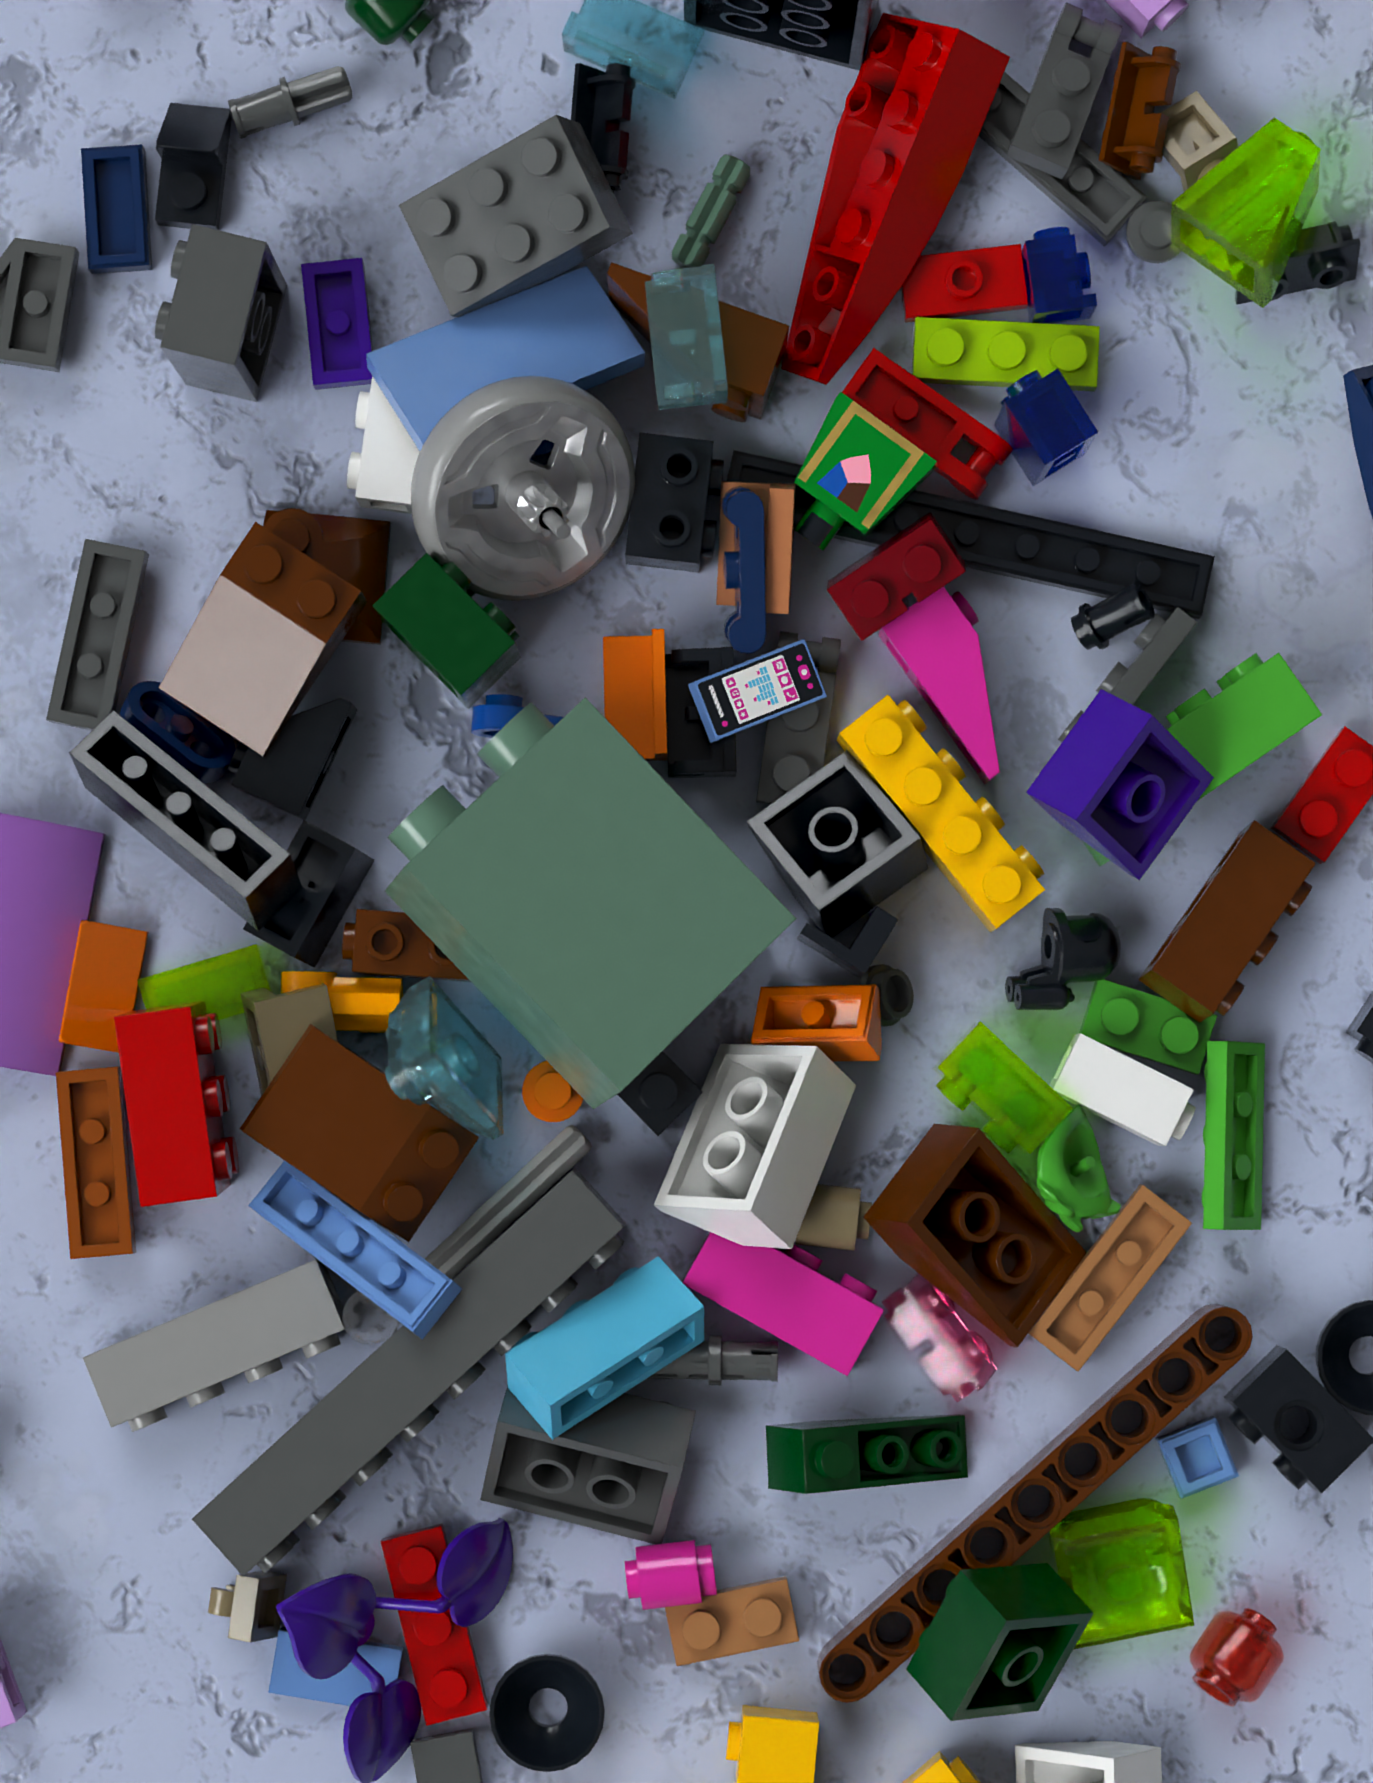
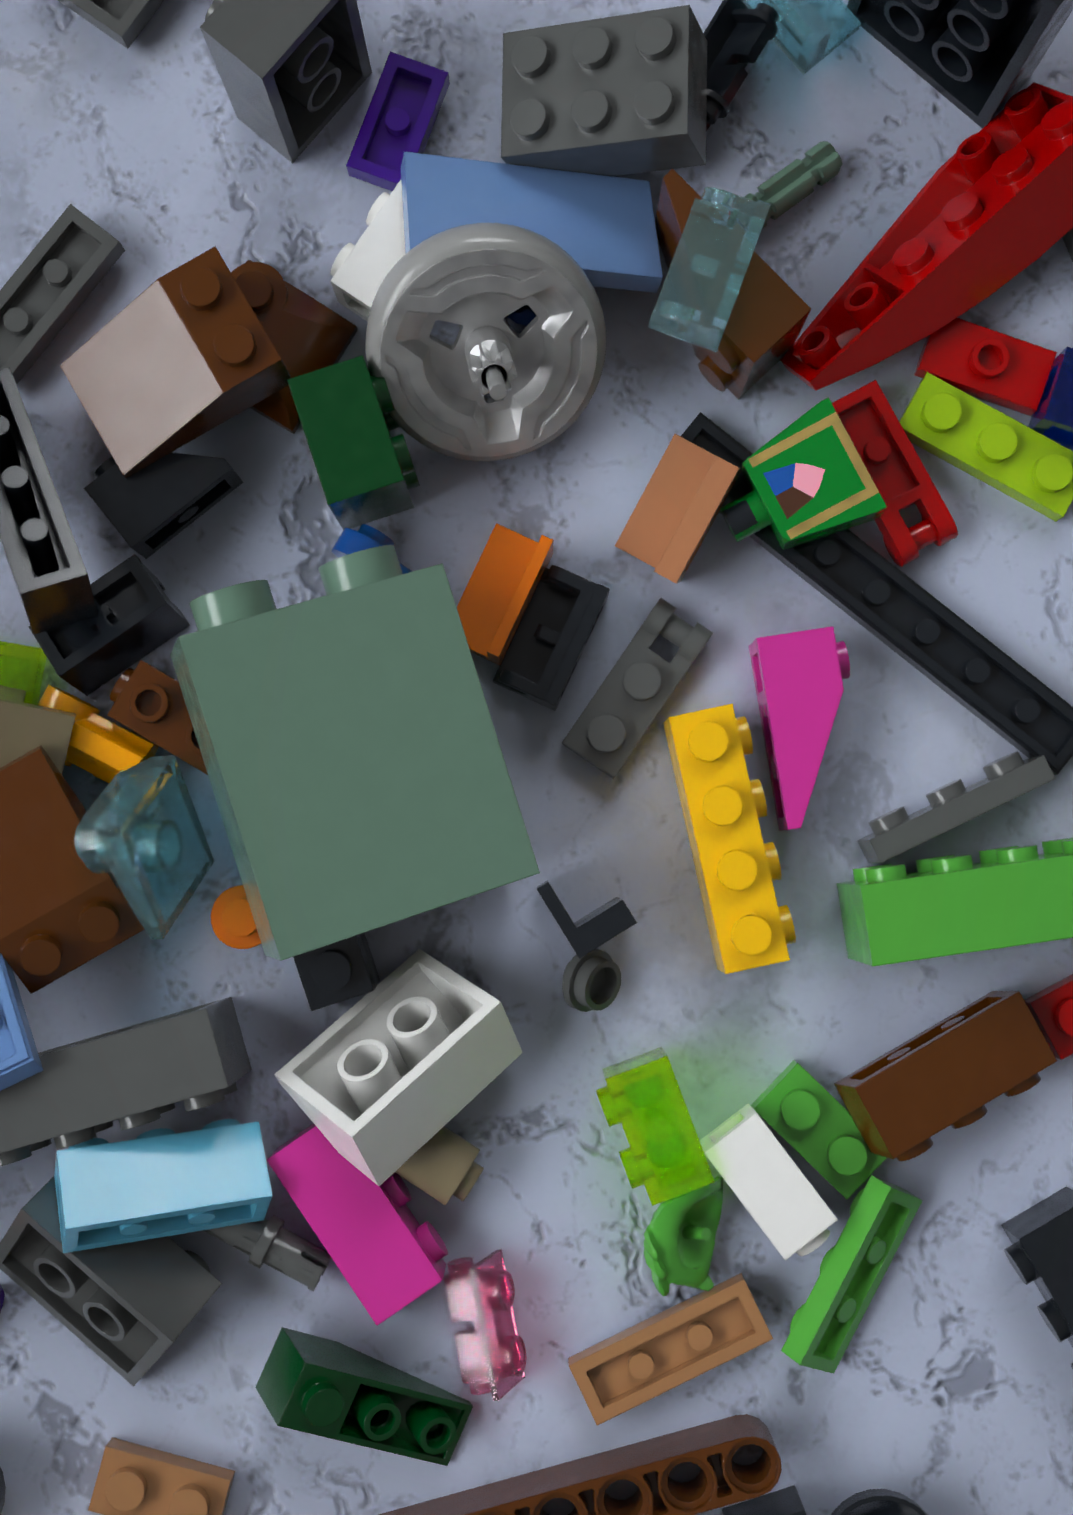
camera: 30 degrees right, 0 degrees up
(179, 731) = (61, 424): dark blue plate -> none
(510, 1202) = (142, 1002): light grey axle -> none
(671, 503) = (619, 430): black brick -> none
(671, 1574) = (124, 1423): dark pink brick -> none
(745, 570) = (656, 524): dark blue plate -> none
(757, 690) = (611, 639): tile -> none
(835, 1018) = (526, 977): orange slope -> none
(839, 844) = (618, 820): black slope -> none
(911, 562) = (817, 592): dark red piece -> none
(976, 1230) = (566, 1245): reddish brown slope -> none
(1044, 424) = (1003, 524): clear blue brick -> none
(1071, 952) = (783, 1027): black piece -> none
(1112, 616) = (975, 734): black pin -> none
(1120, 783) = (917, 898): dark purple slope -> none

